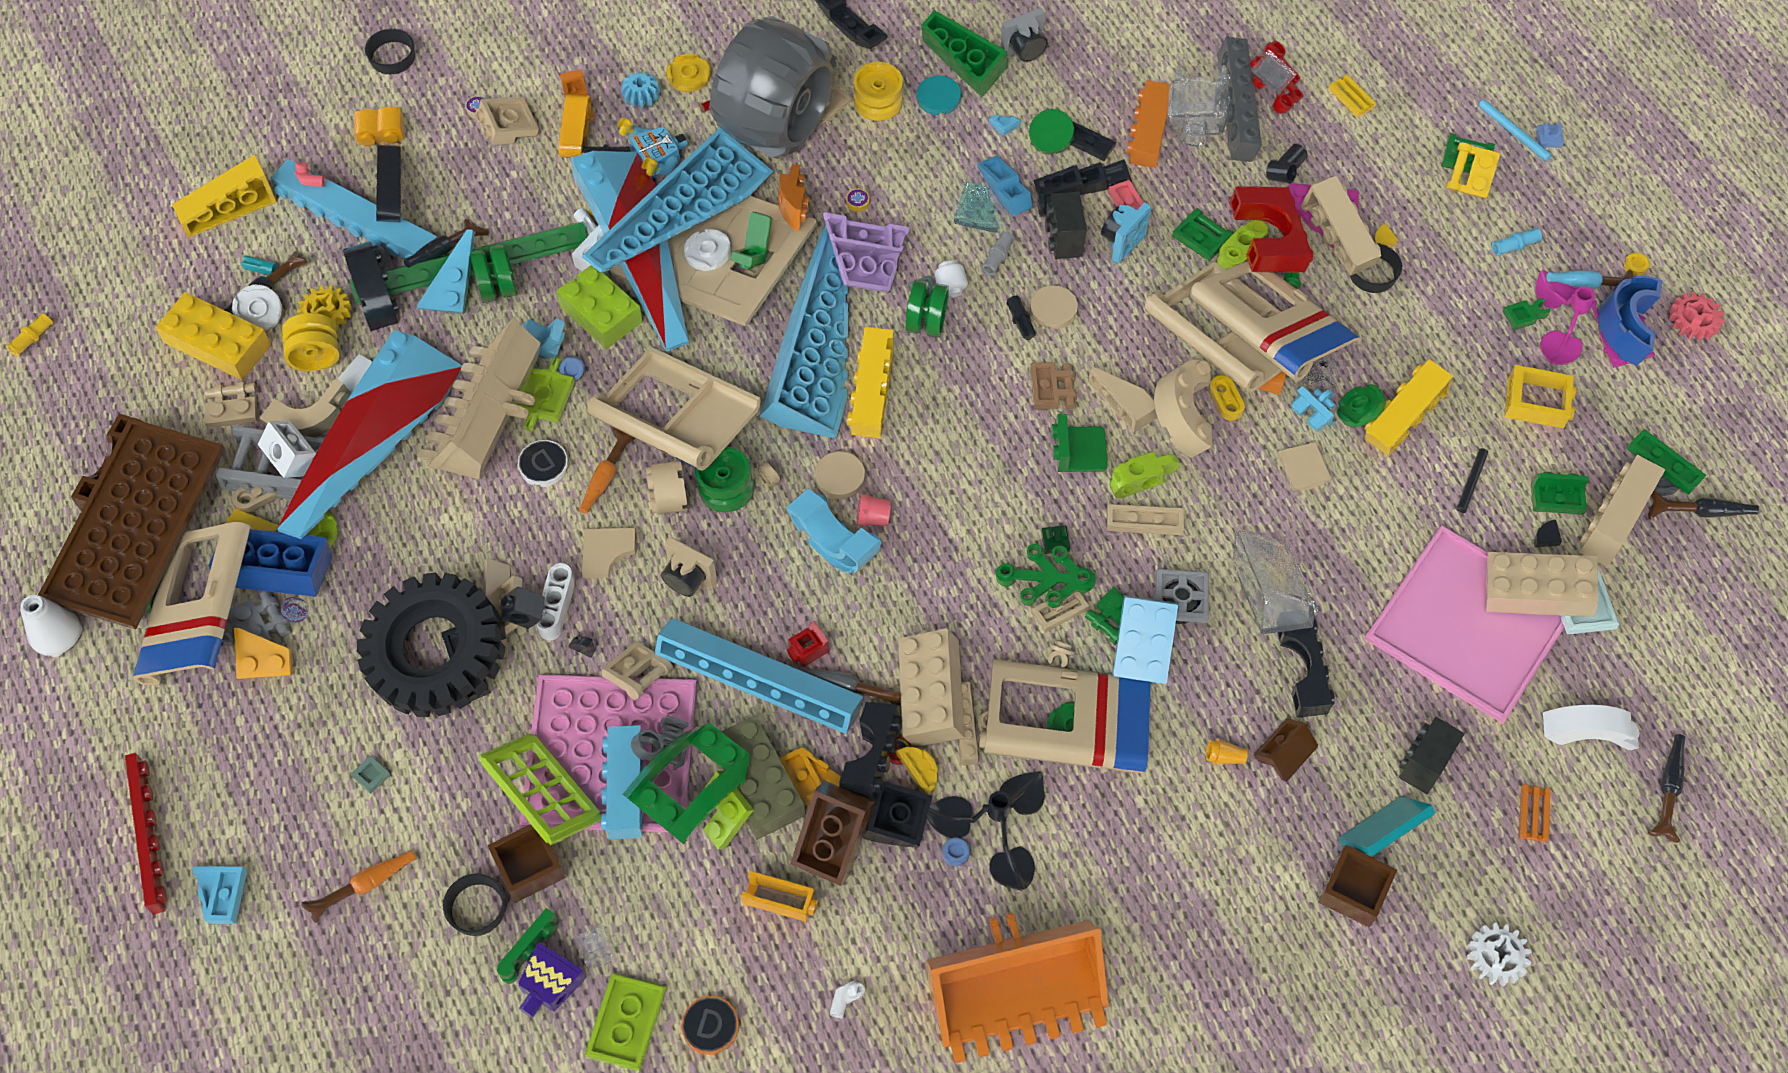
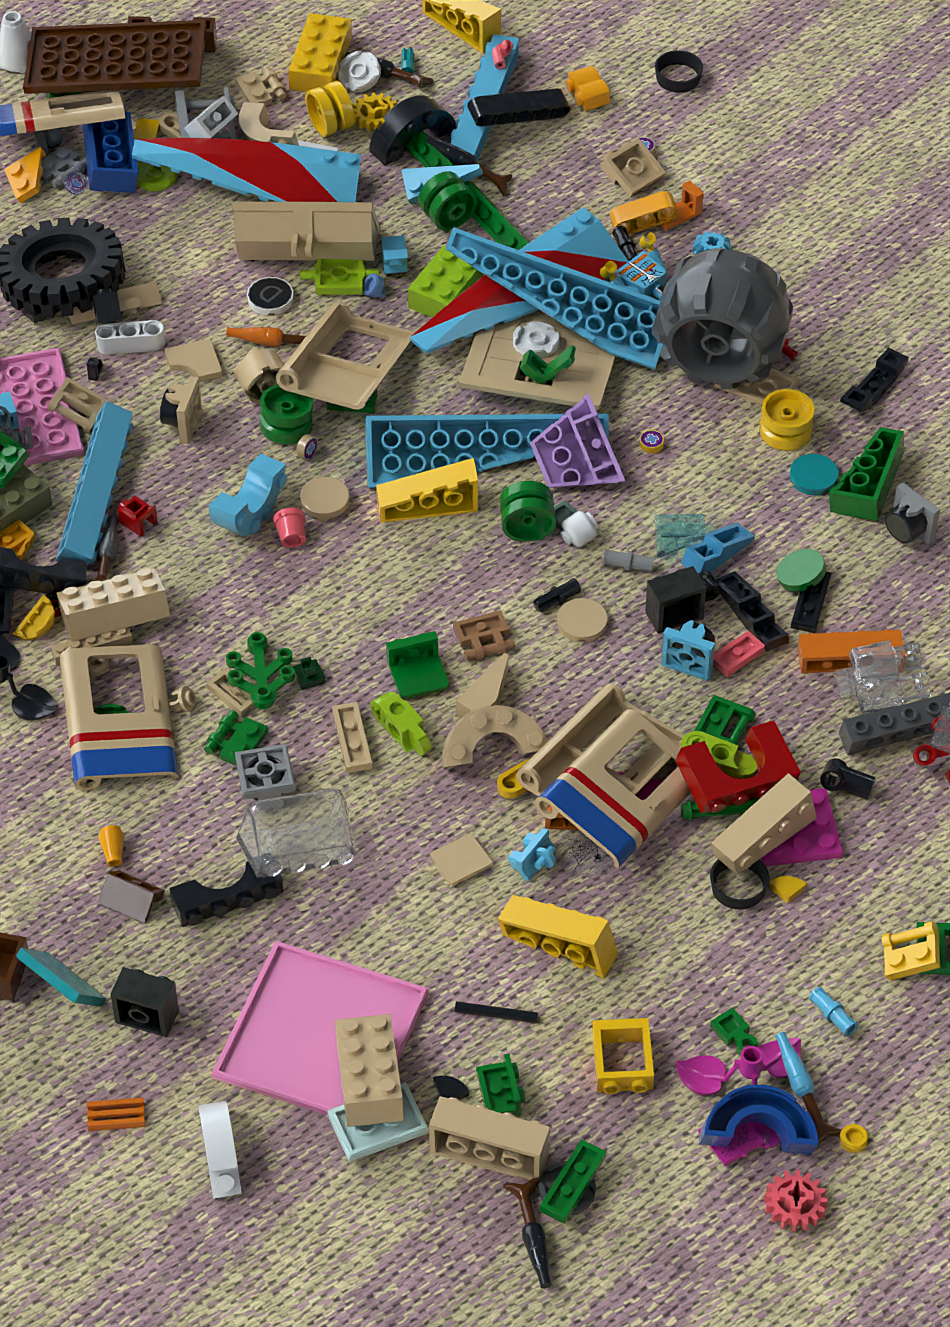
camera: 75 degrees right, 10 degrees down
(792, 198) = (618, 376): orange slope -> none
(1004, 124) = (800, 535): medium azure tile -> none
(1145, 639) = (205, 747): medium azure brick -> none
(1361, 405) = (550, 891): green tile -> none
(1671, 786) = (174, 1231): piece -> none

